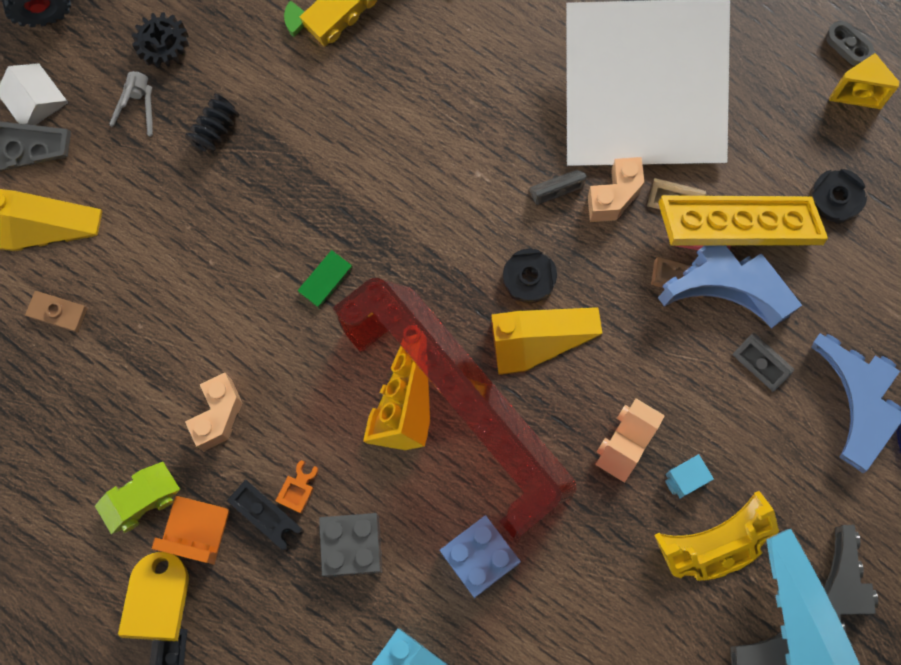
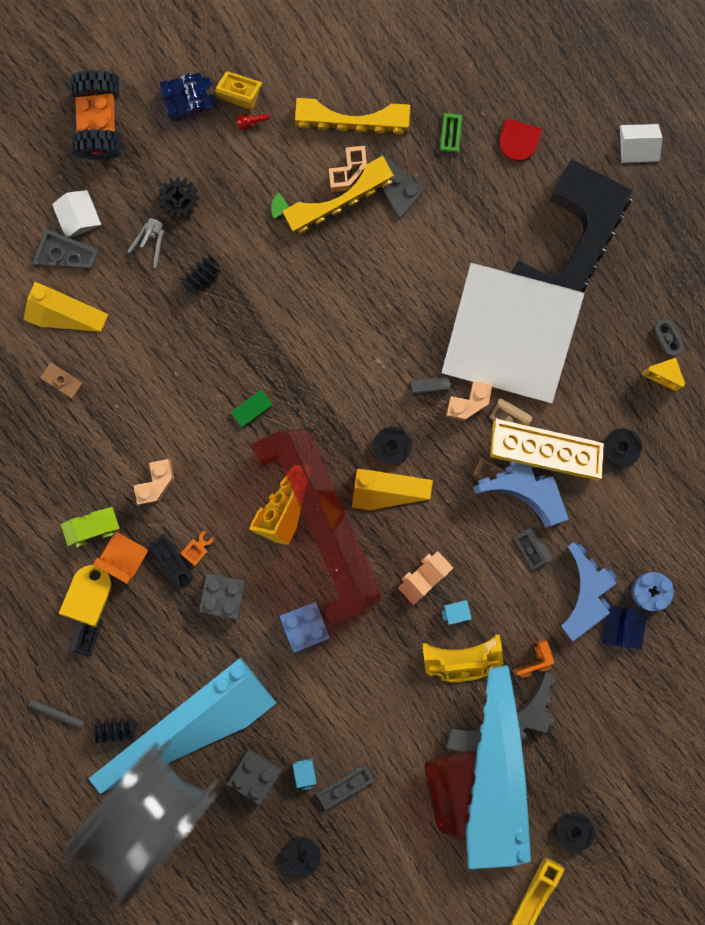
camera: 10 degrees right, 10 degrees up
(835, 501) = (542, 652): none -> orange bracket

